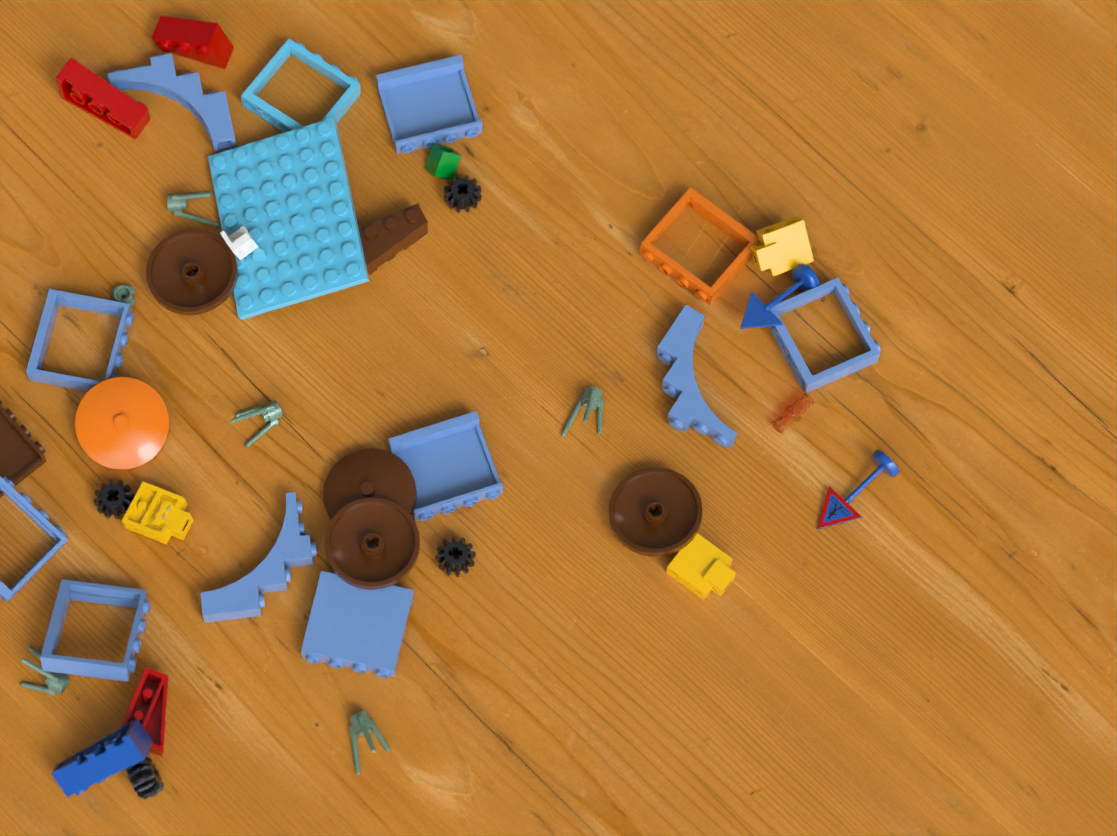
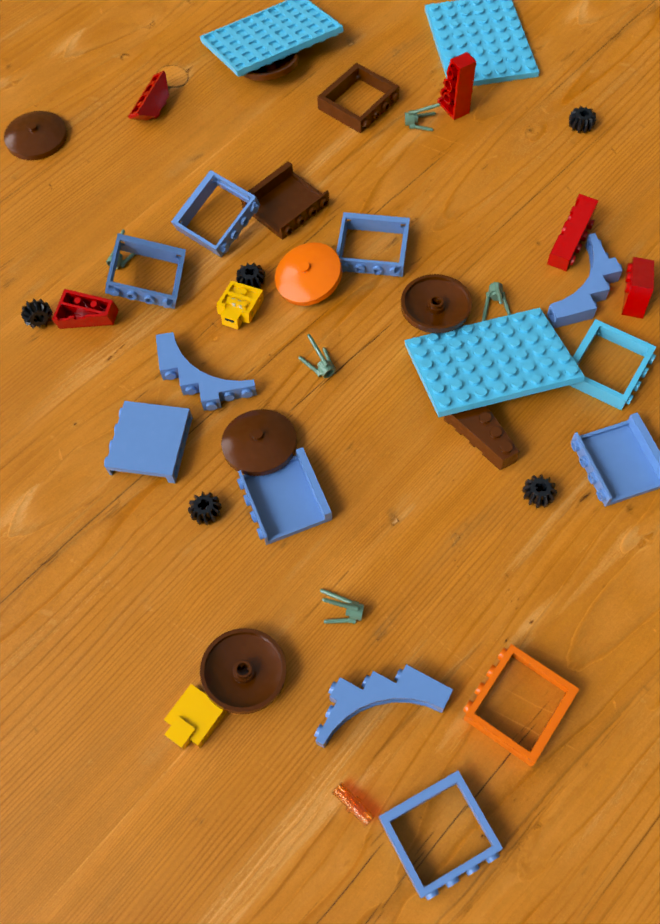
camera: 95 degrees right, 5 degrees down
(103, 758) = (46, 284): blue wedge -> none
(125, 290) = (413, 263): sand green plate -> none
(240, 242) = (462, 328): white panel -> none
(362, 726) = (67, 451): sand green plant -> none
(372, 543) = (208, 440): reddish brown dish -> none
(442, 161) = (567, 474): green panel -> none
(759, 314) = (449, 763): blue piece -> none
(782, 246) = (528, 785): yellow piece -> none
(837, 510) = (253, 854): blue piece -> none

